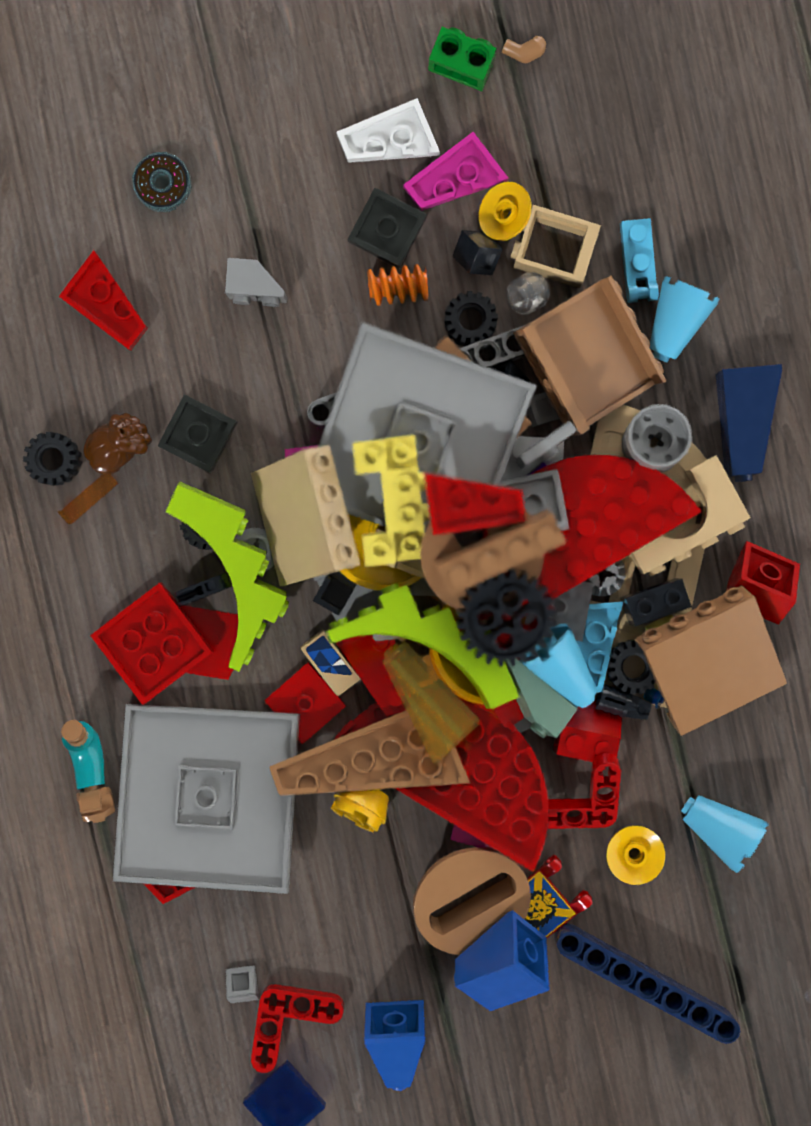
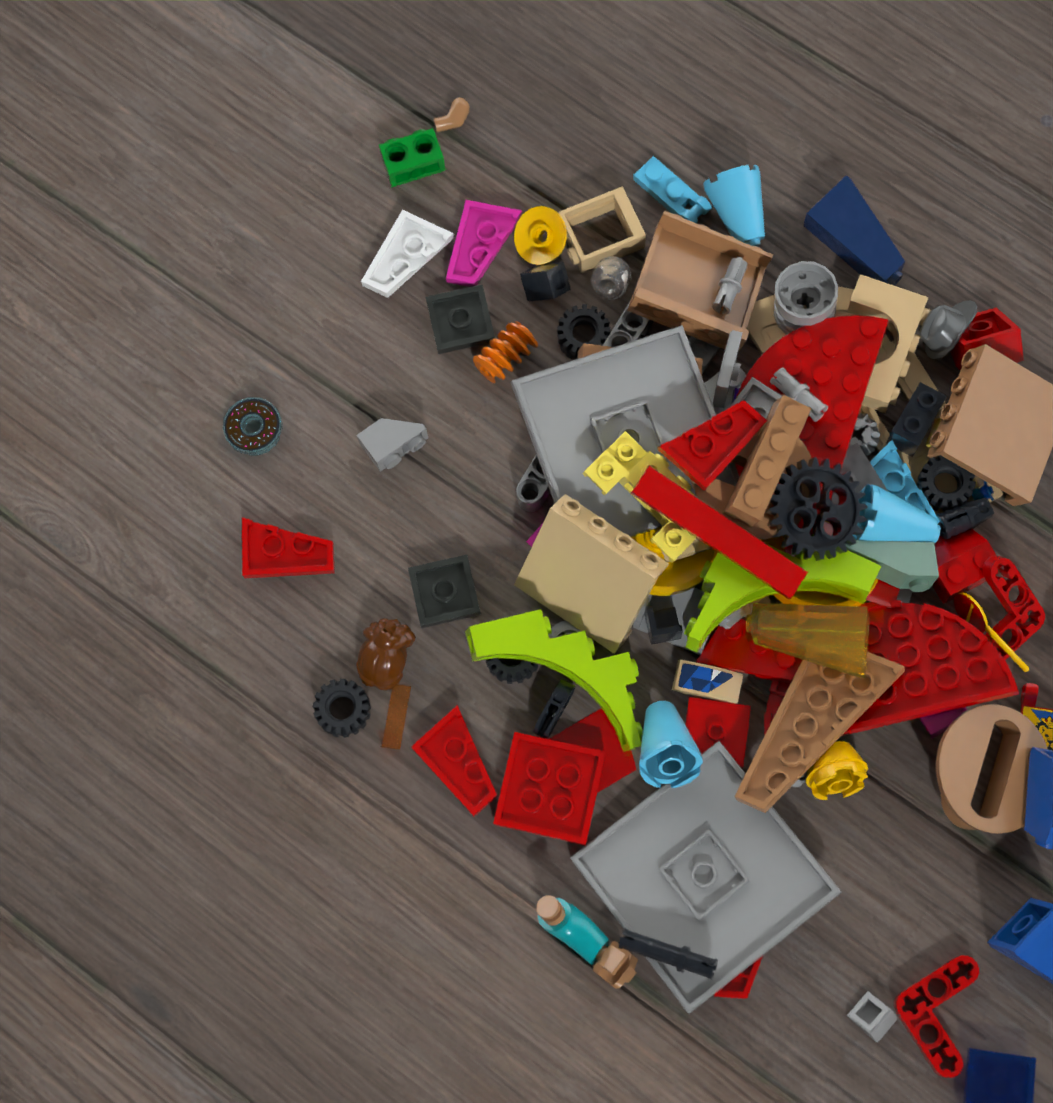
camera: 30 degrees left, 15 degrees down
(102, 567) = (456, 762): none -> red wing
(130, 831) = (678, 957): none -> black pin
(255, 687) = (667, 748): none -> medium azure cone
(415, 573) = (719, 532): none -> red tile
(561, 784) = (972, 612): none -> piece
(579, 513) = (798, 392): none -> light grey pin
(611, 378) = (730, 285): none -> light grey axle
(745, 550) = (945, 326): none -> dark grey piece

